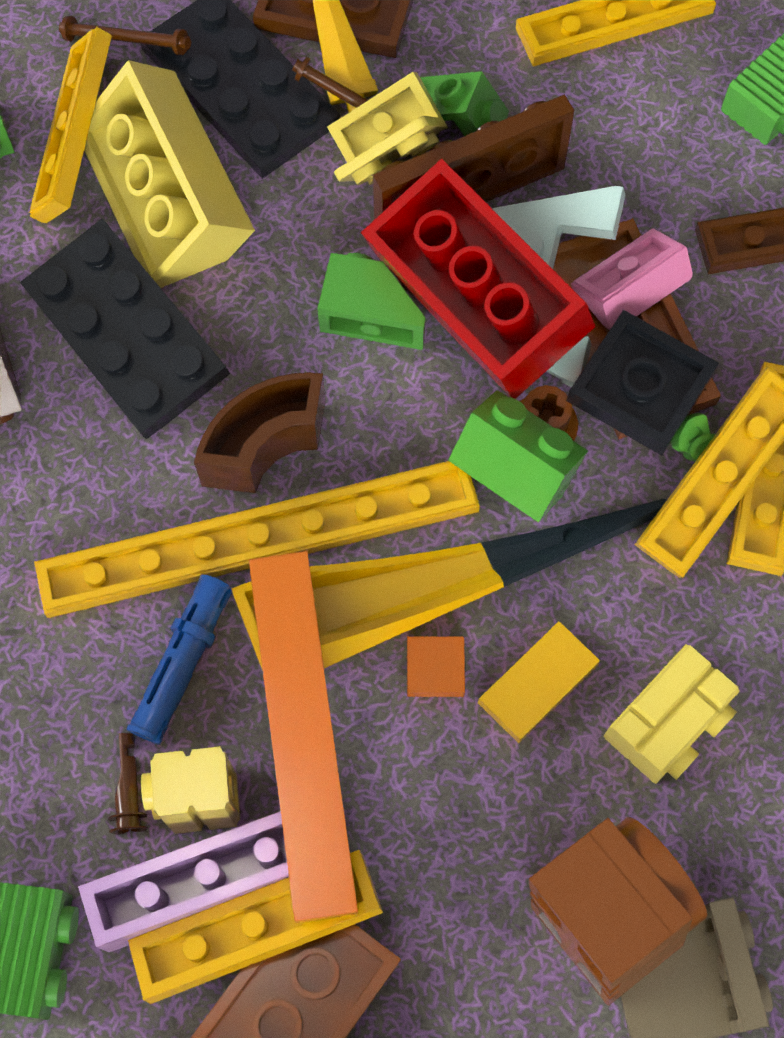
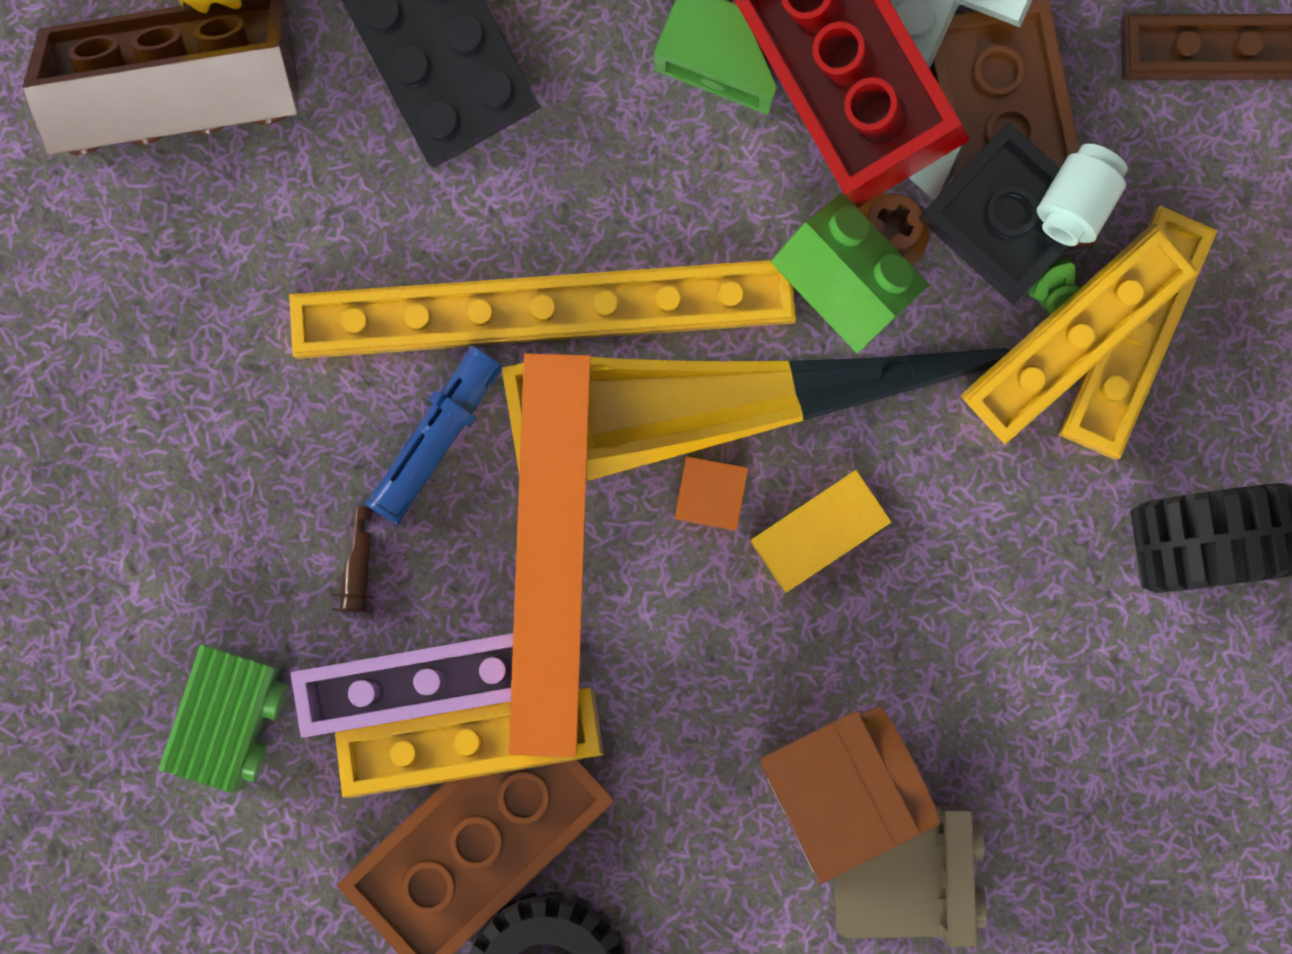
camera: 10 degrees right, 15 degrees up
(192, 790) = (424, 590): light yellow brick -> none
(259, 429) = (565, 186): reddish brown brick -> none
(634, 277) = (1031, 77): bright pink slope -> none
(672, 714) = (957, 598): light yellow brick -> none
(699, 350) = (1083, 195): none -> light aqua brick

